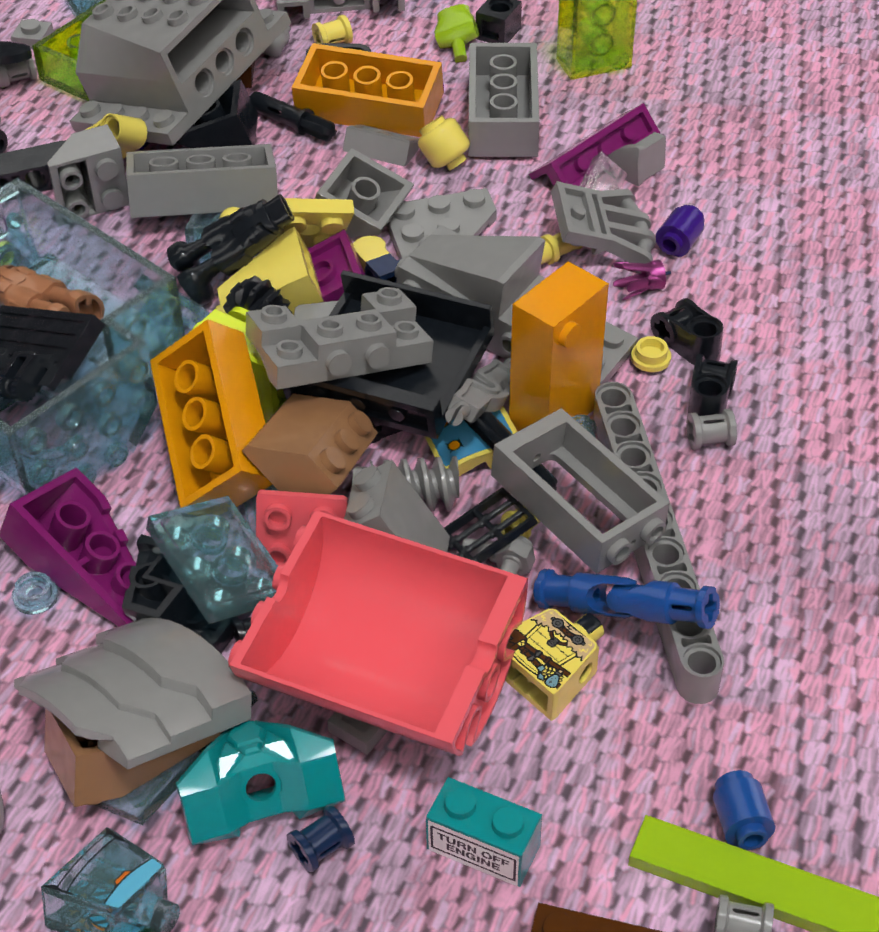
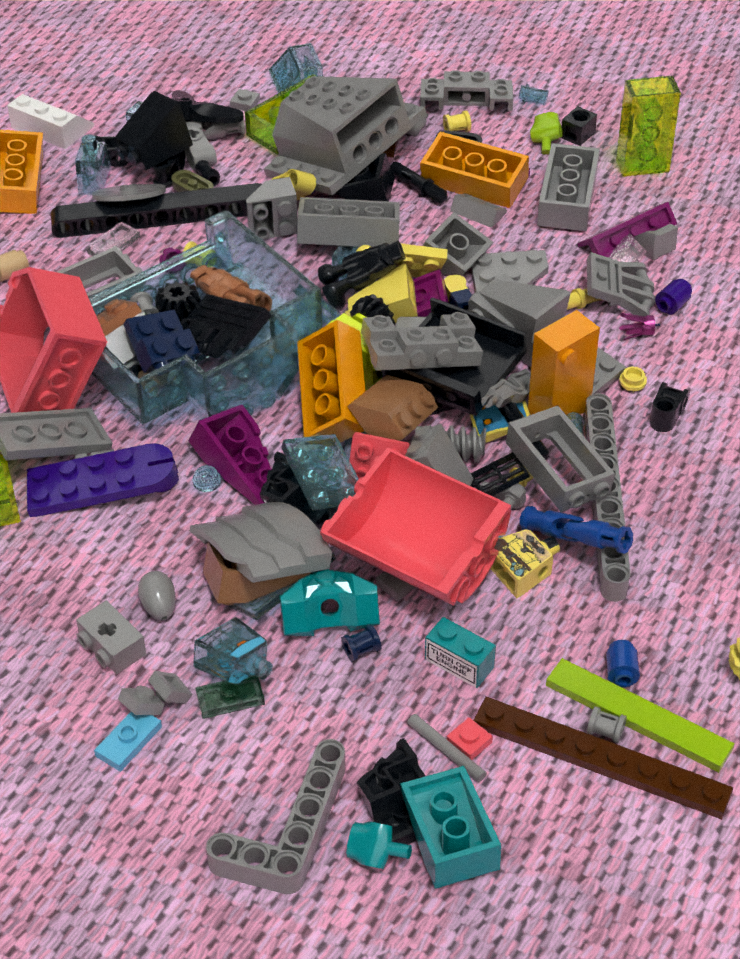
camera: 10 degrees right, 0 degrees up
(443, 143) = (520, 214): light yellow head -> none
(689, 331) = (662, 366): black piece -> none
(711, 429) = (661, 433): light grey bush -> none

